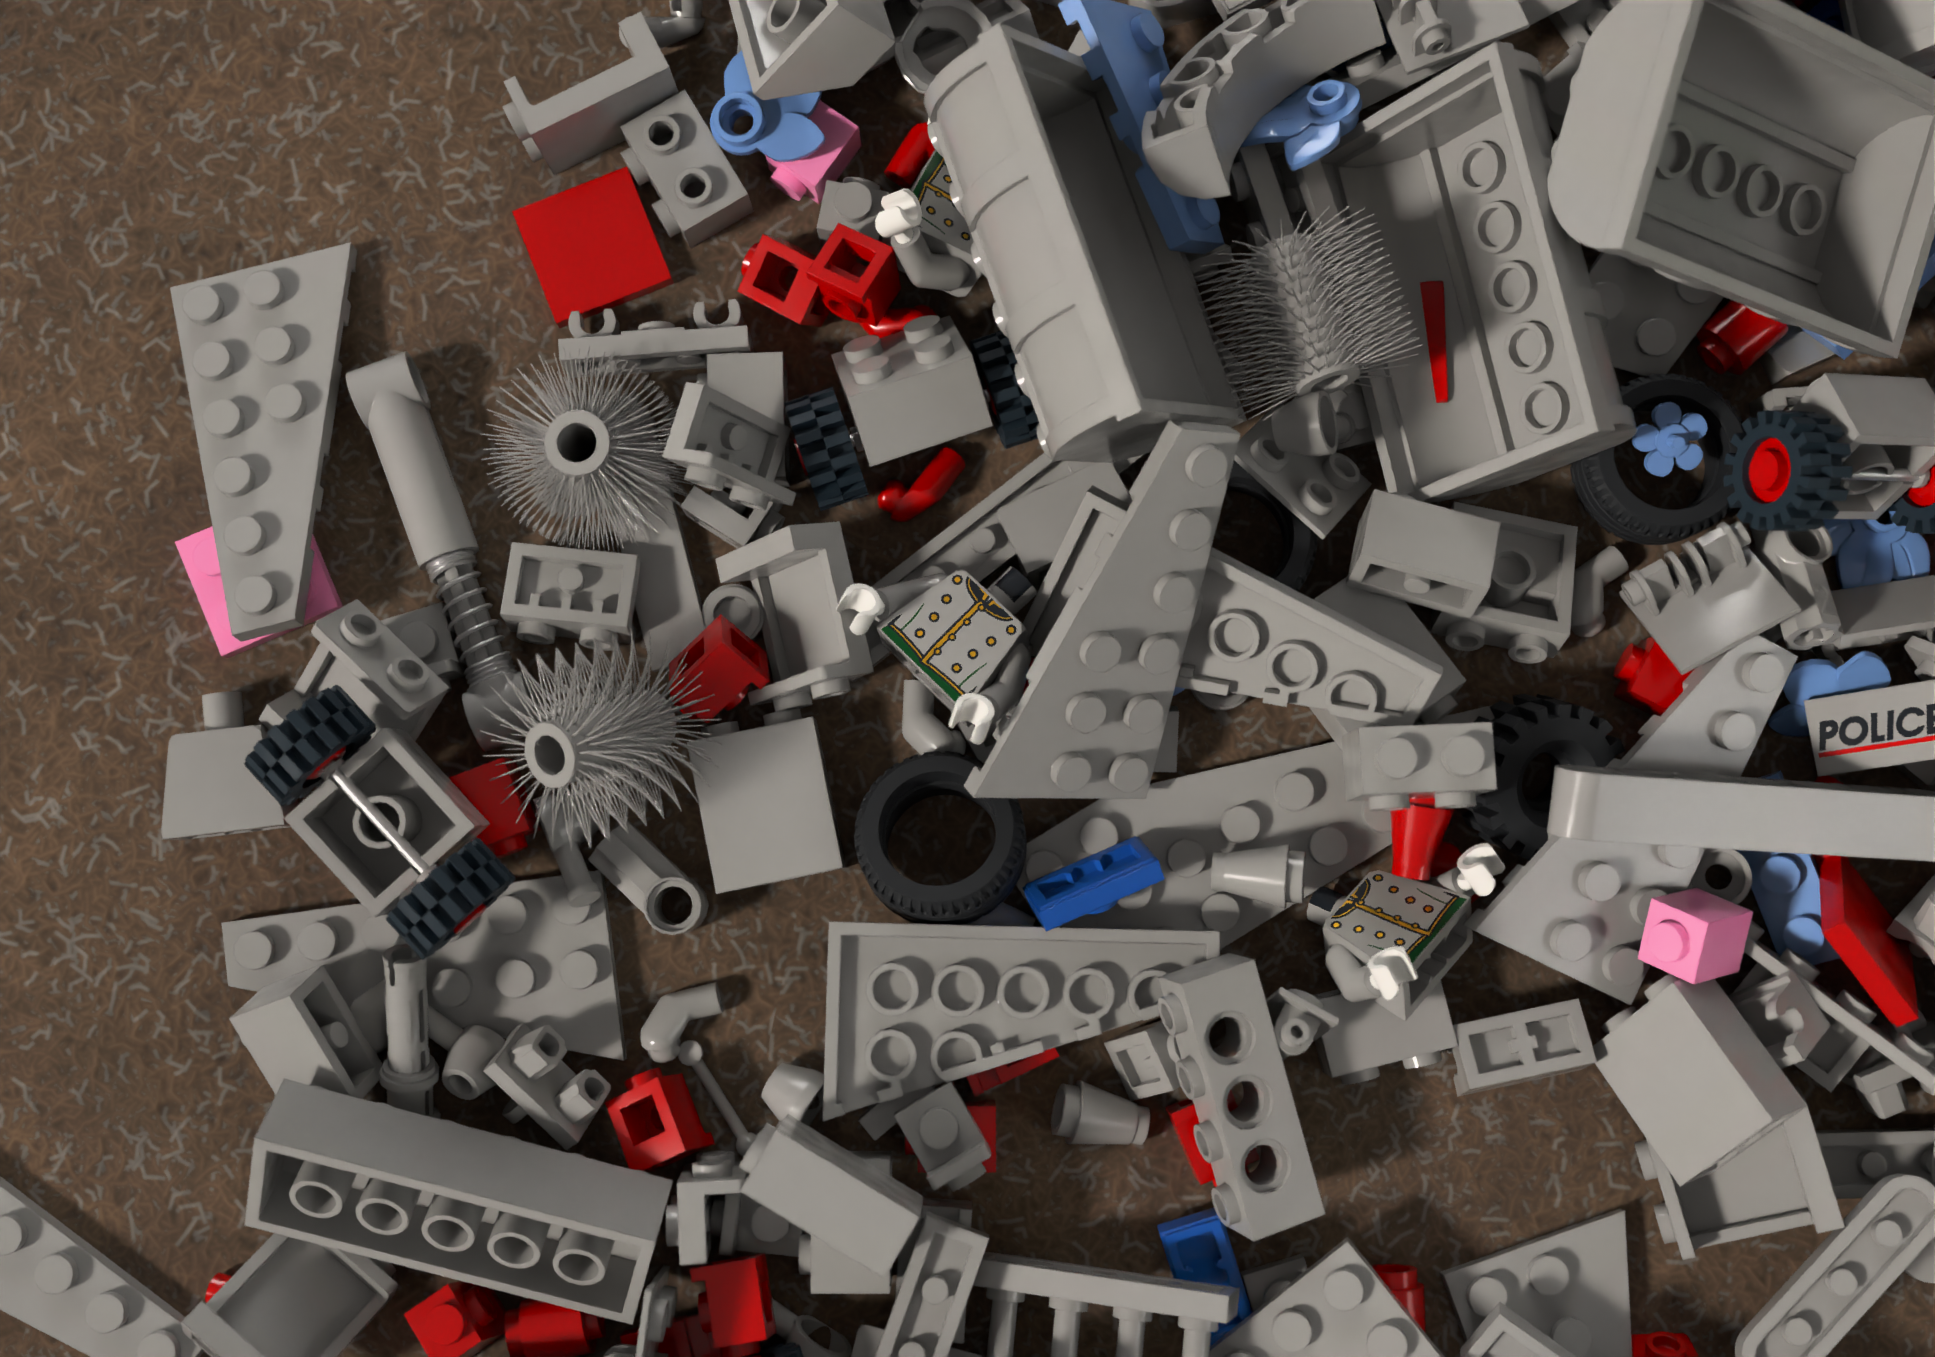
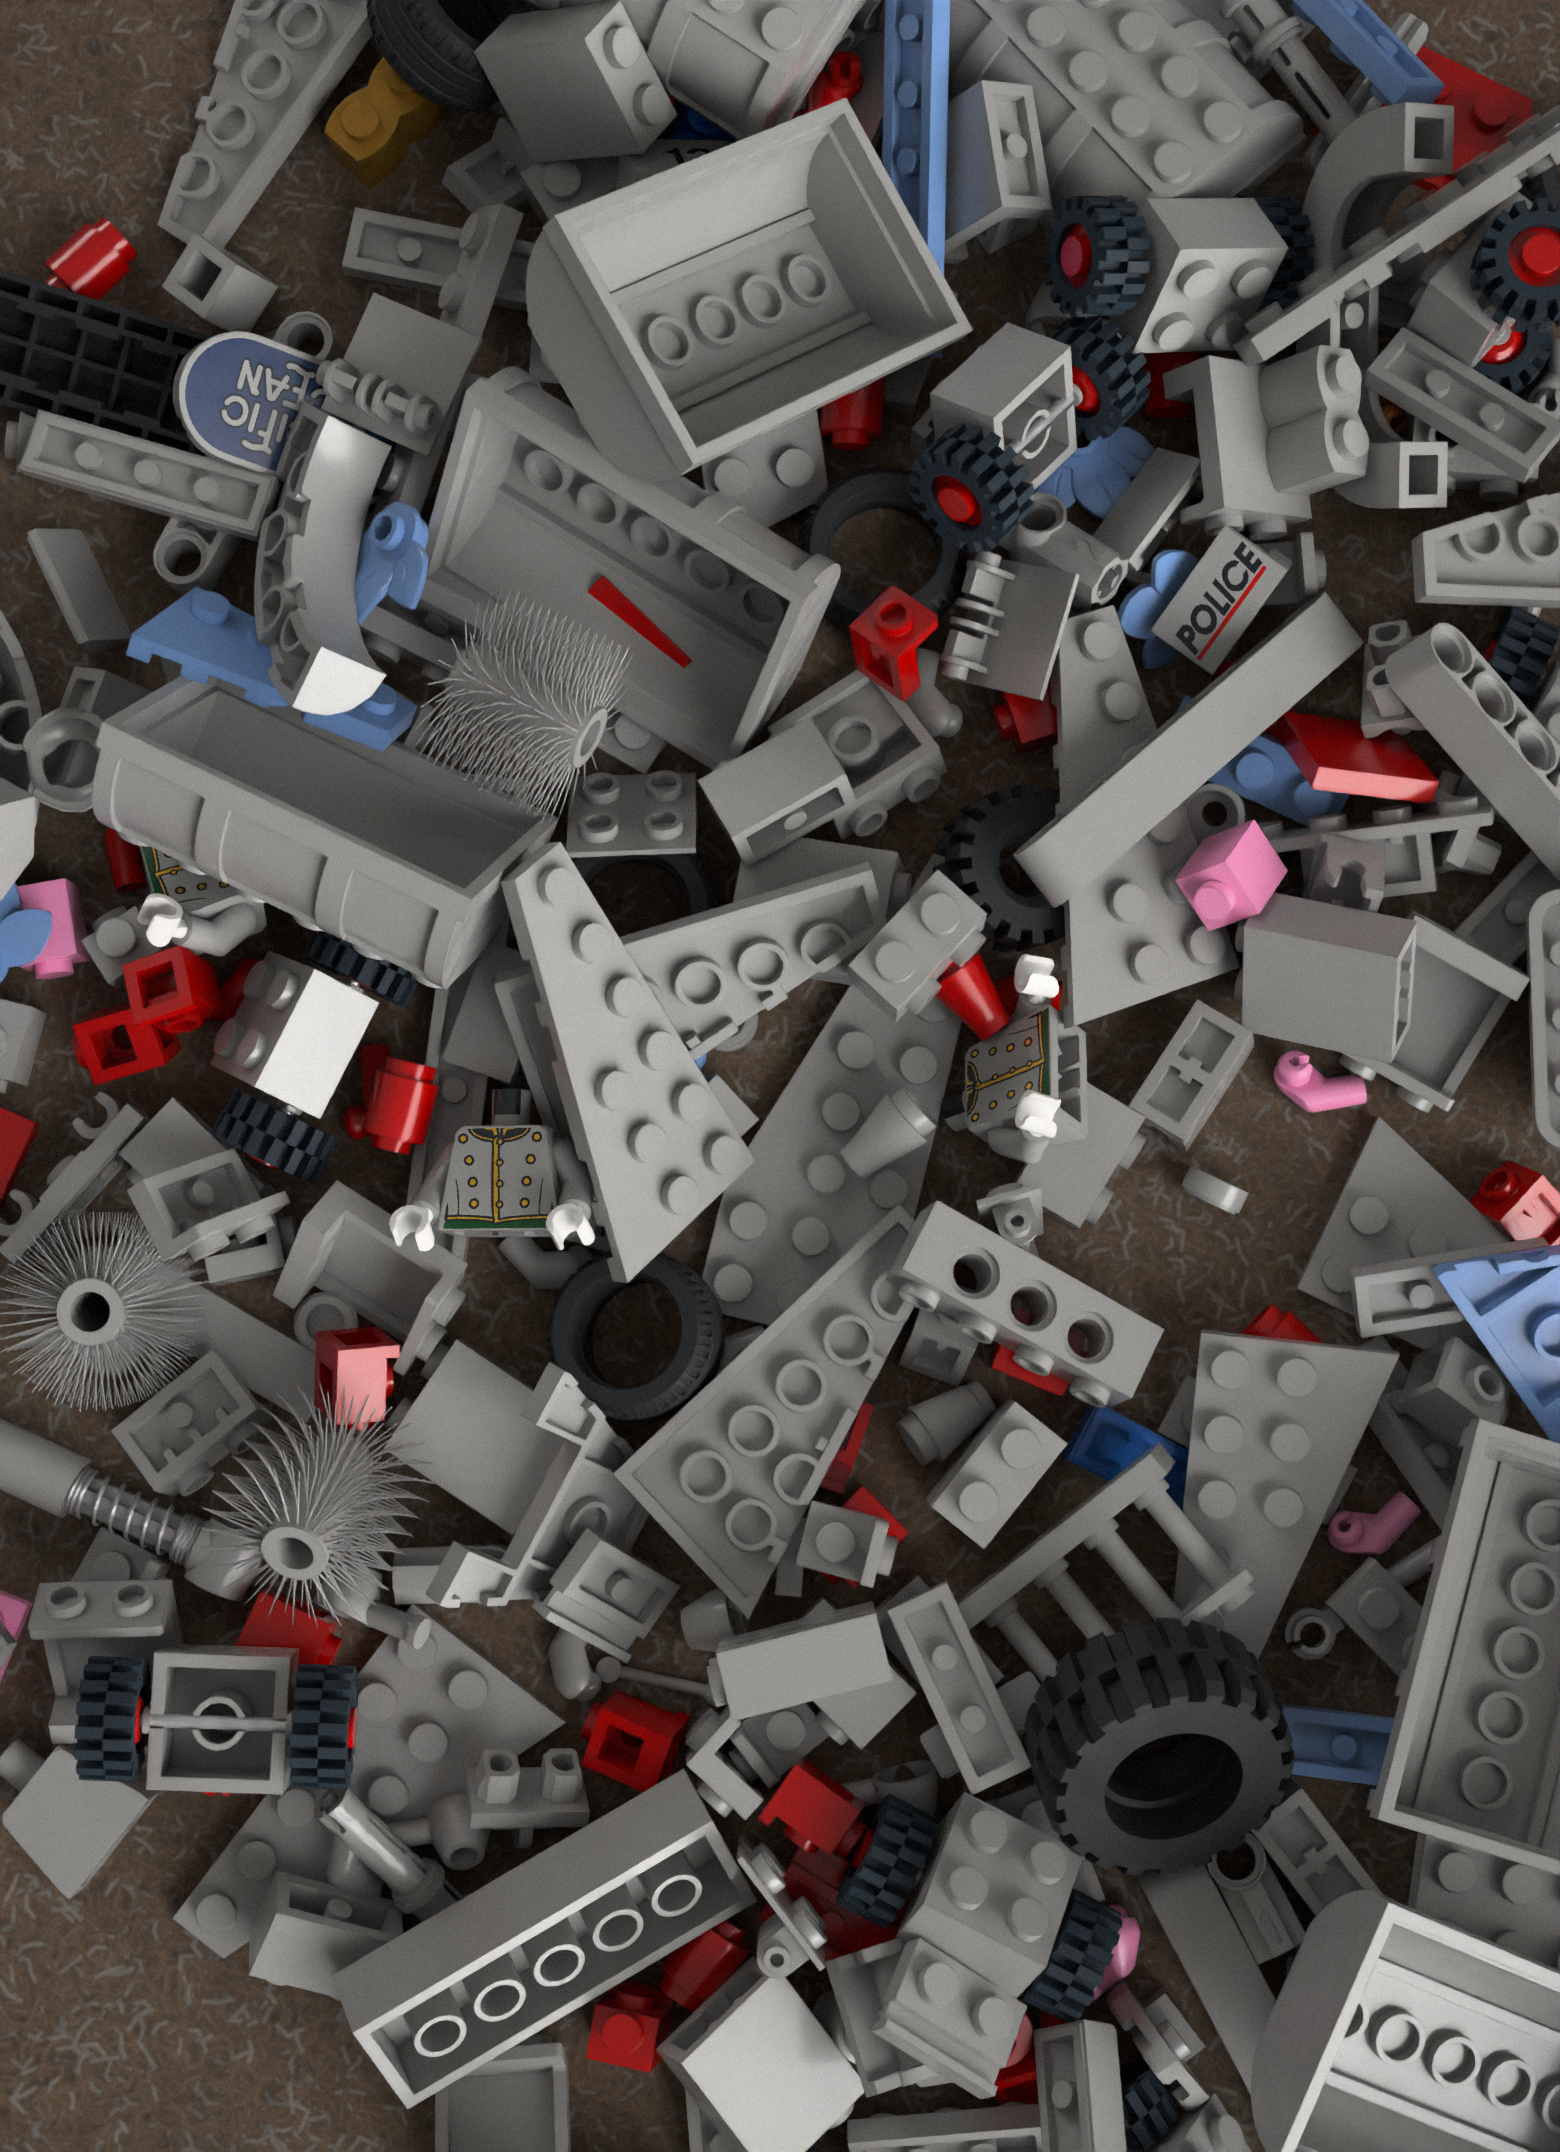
camera: 40 degrees left, 0 degrees up
(739, 1001) = (606, 1595): none -> light grey plate
(766, 931) = (573, 1496): none -> light grey wing
(936, 513) = (401, 1105): none -> red brick
(1093, 883) = (775, 1258): blue plate -> none
(1102, 1193) = (995, 1472): none -> light grey brick
(1311, 425) = (609, 777): light grey bar -> none
(1453, 1145) = (1214, 1190): none -> light grey tile
(1593, 1143) = (1312, 1089): none -> bright pink arm
(1608, 522) = (887, 641): none -> red bracket
(1670, 439) = (873, 537): medium blue plant -> none

